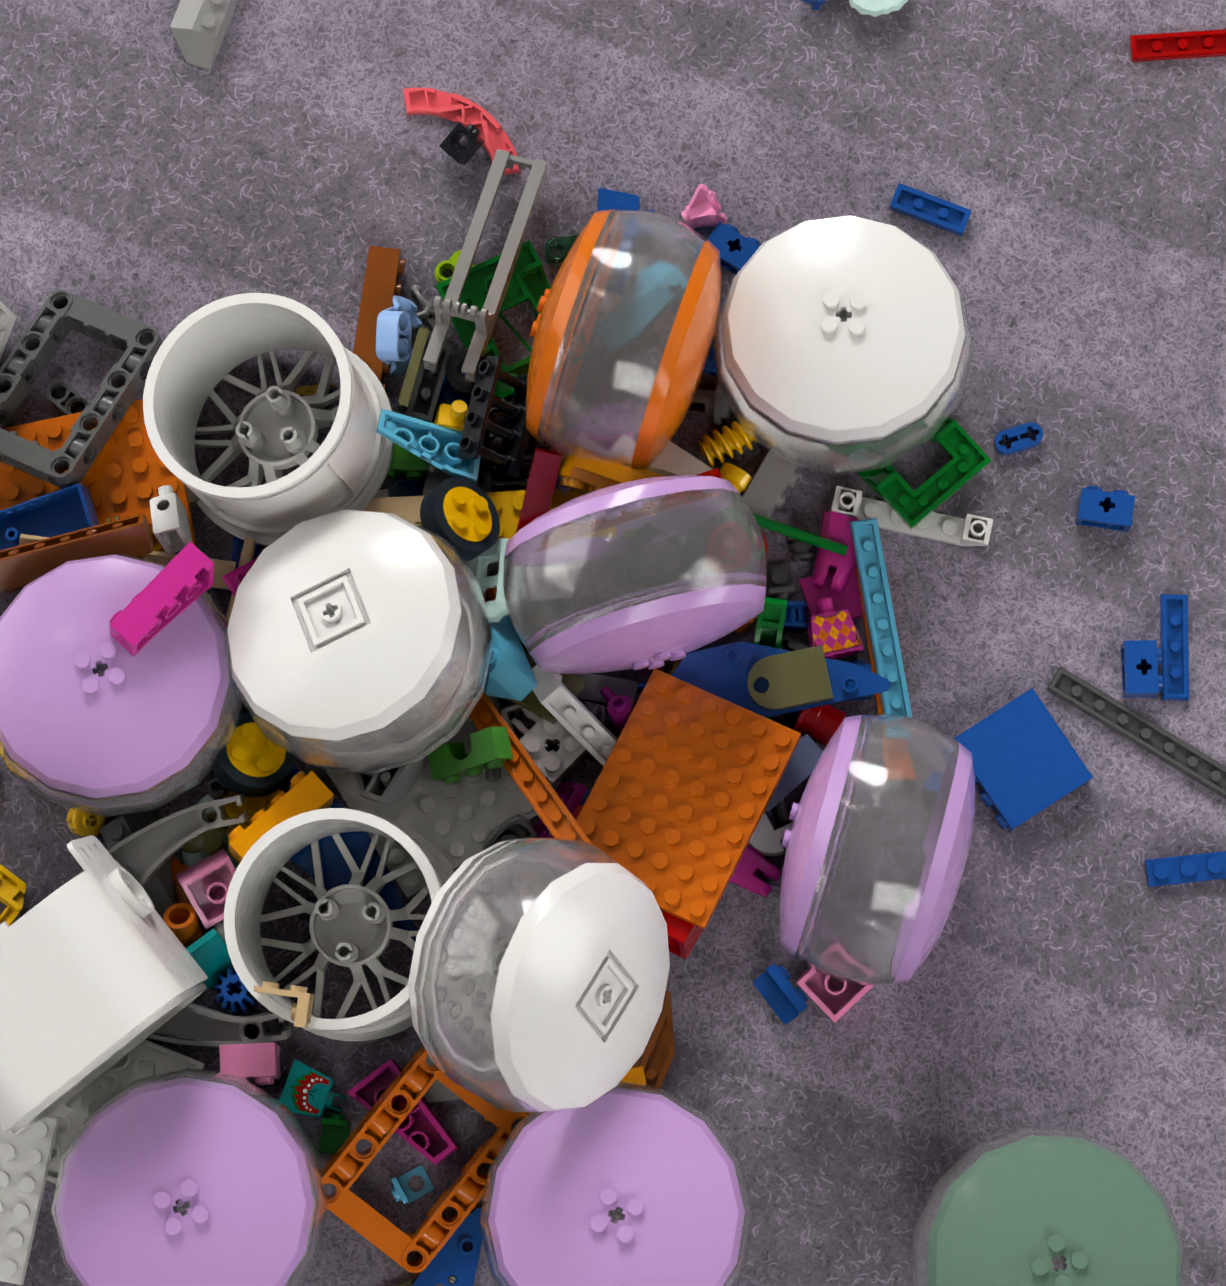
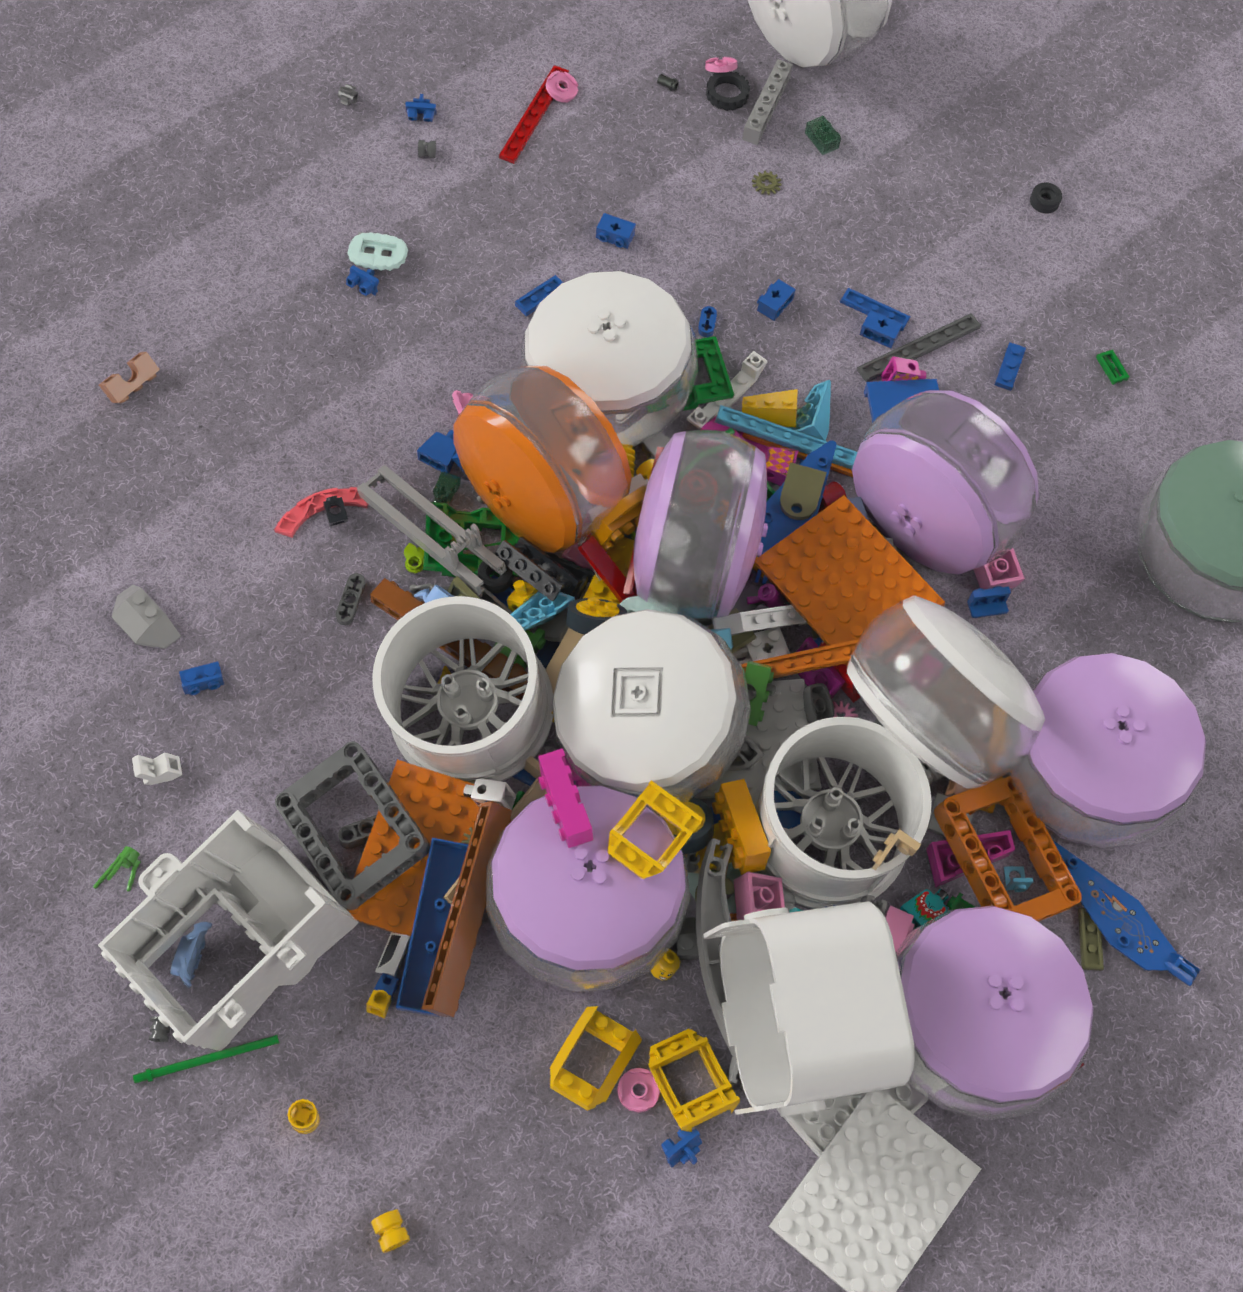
camera: 70 degrees left, 15 degrees down
(29, 143) = (157, 770): none -> white brick
(169, 124) = (201, 678): none -> blue bracket
(214, 724) = (668, 808): none -> yellow wedge
(365, 217) = (348, 591): none -> dark grey beam
(918, 587) = (773, 407): none -> yellow wedge
(937, 647) = (815, 415): none -> medium azure wedge
(1073, 720) = (902, 369): none -> dark pink torso
(1097, 236) = (615, 230): none -> blue brick

